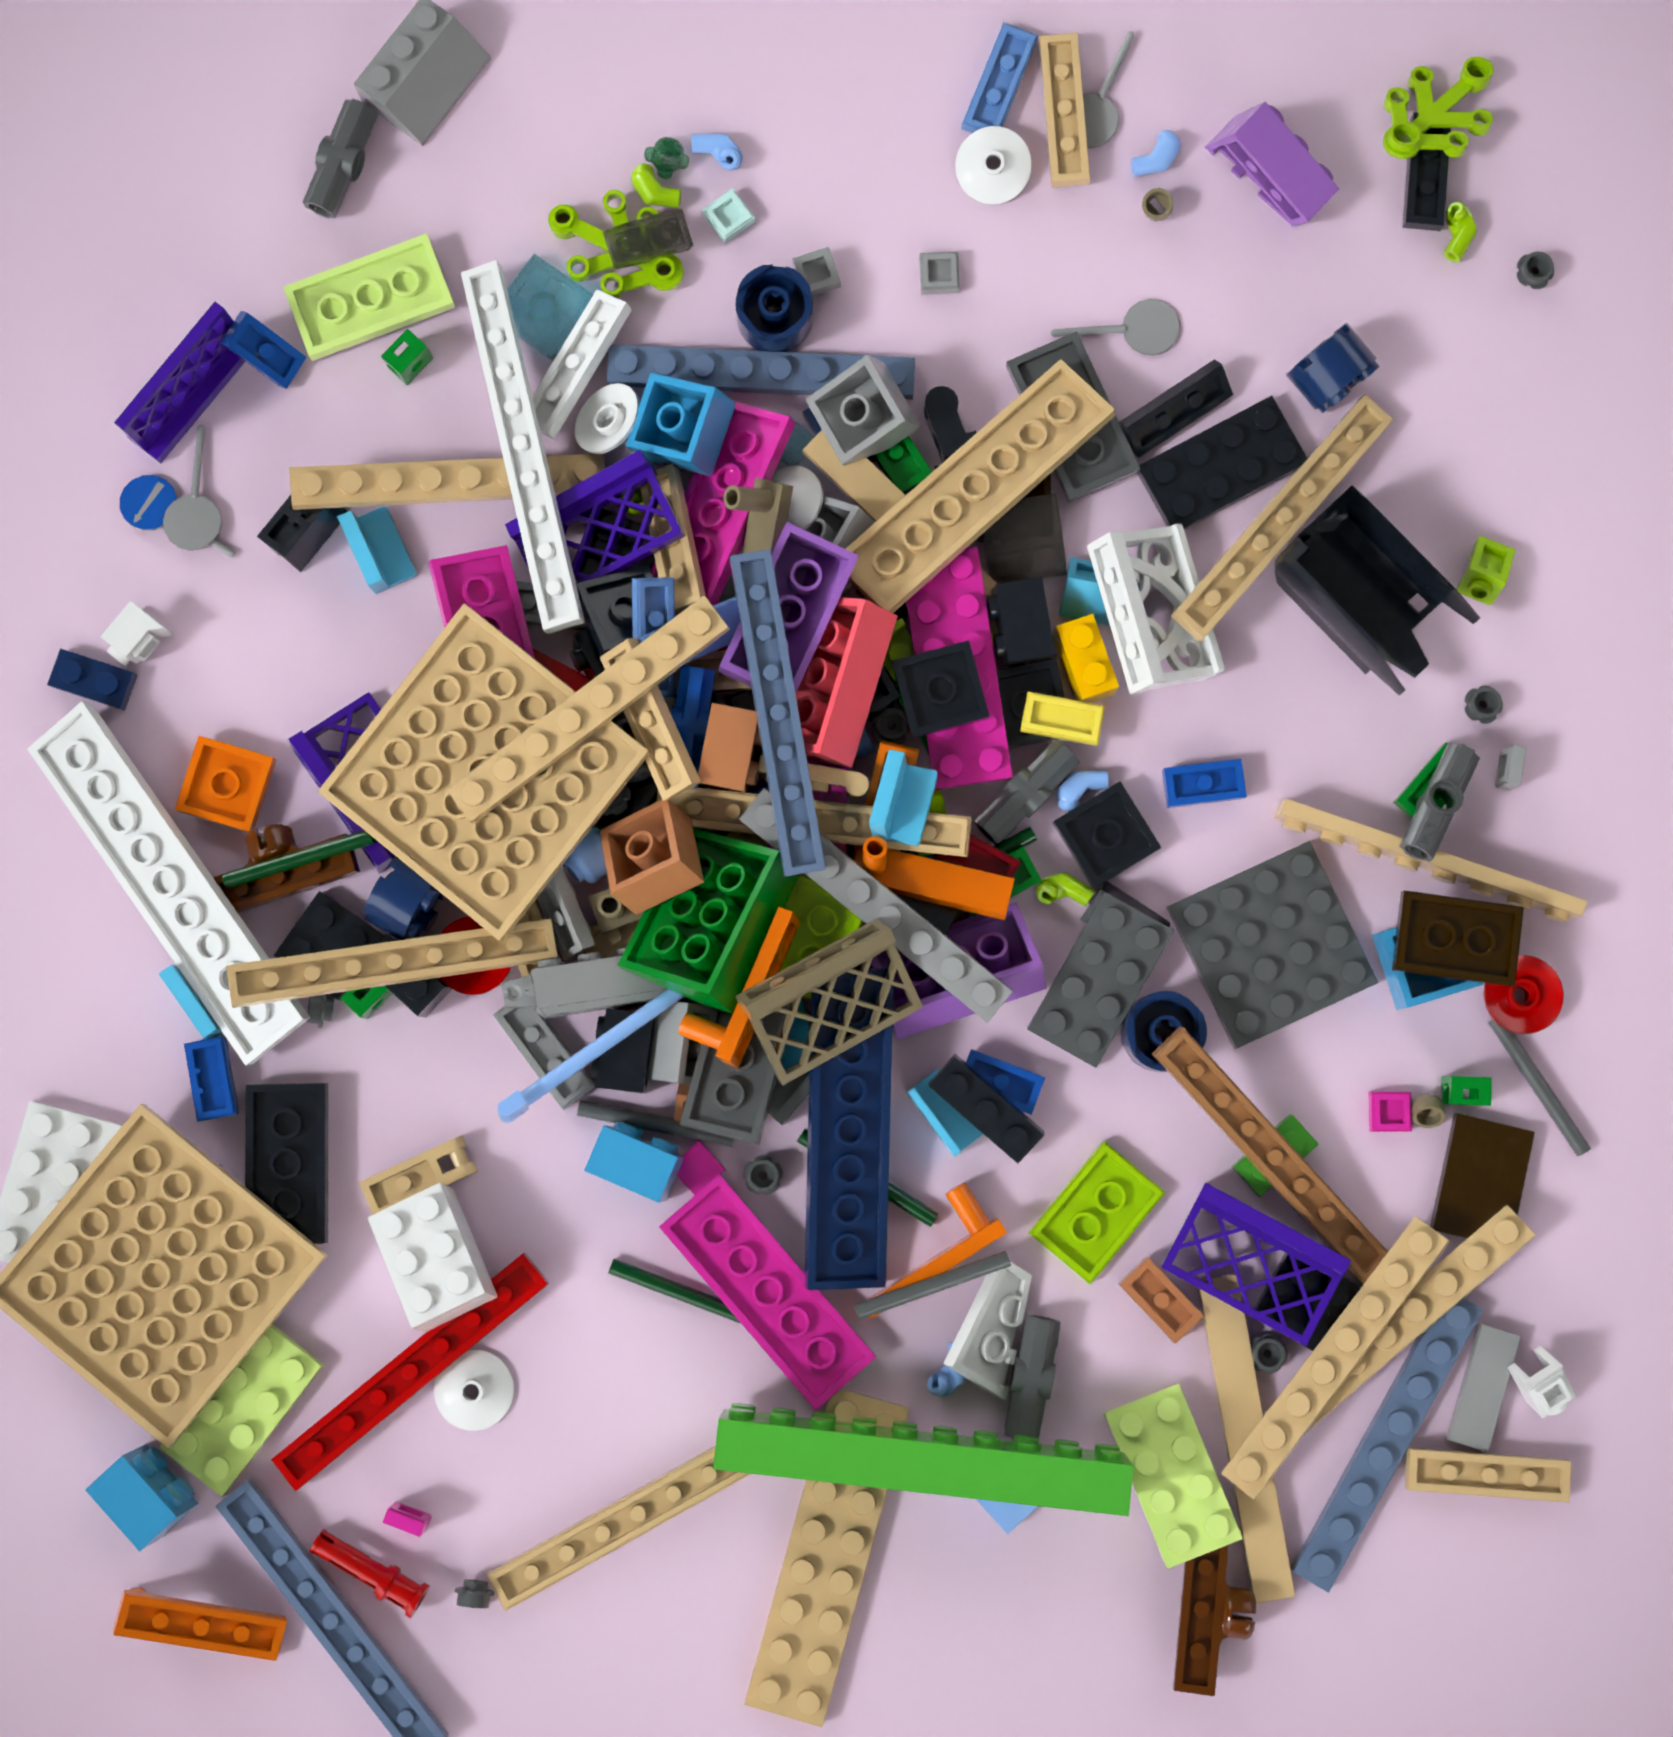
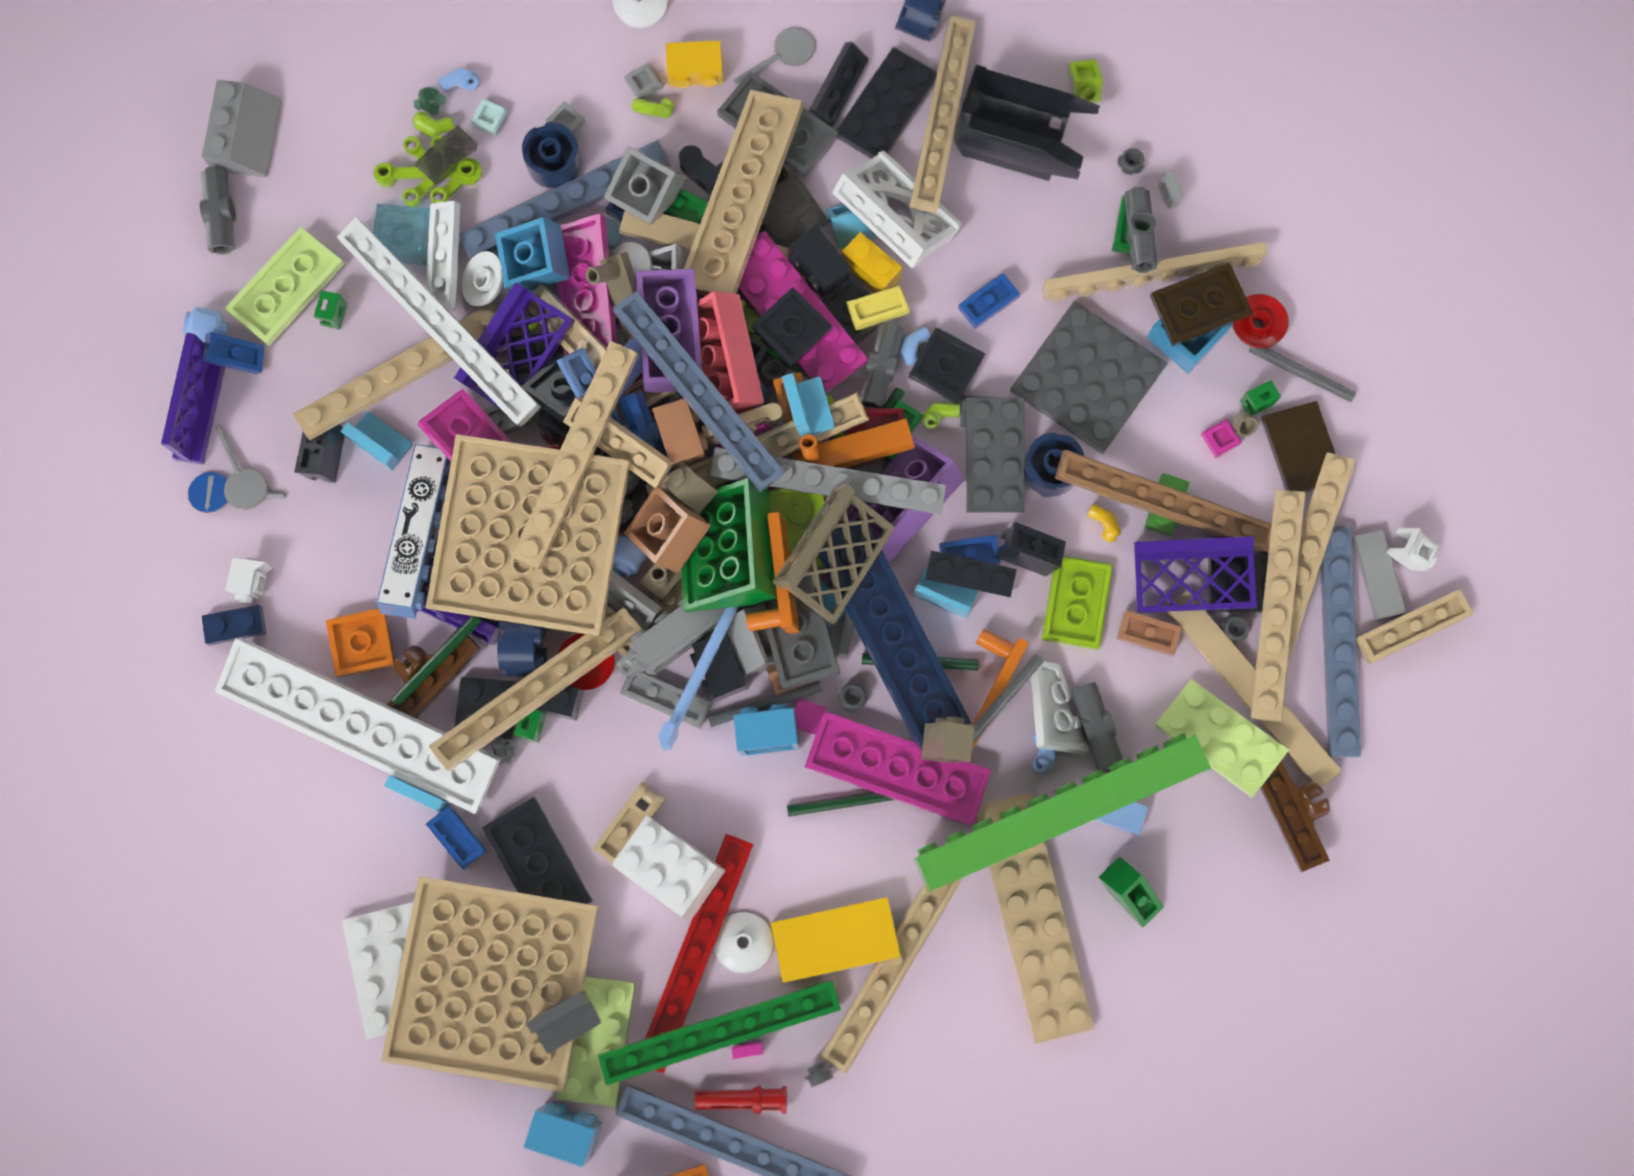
camera: 30 degrees left, 5 degrees down
(212, 1370) = (564, 1022): none -> dark grey panel
(249, 293) = (203, 321): none -> light blue head
(355, 692) = (414, 534): none -> brick
(384, 1481) = (718, 1032): none -> green plate
(580, 1451) = (835, 940): none -> yellow tile
(706, 822) = (690, 487): none -> dark tan brick
(838, 1299) = (948, 741): none -> dark tan brick
(929, 314) = (649, 108): none -> lime arm
(958, 1594) = (1131, 891): none -> green slope
(1013, 285) = (694, 63): none -> yellow brick
(1076, 1121) = (1031, 549): none -> black hinge
(1192, 1135) = (1109, 522): none -> yellow arm

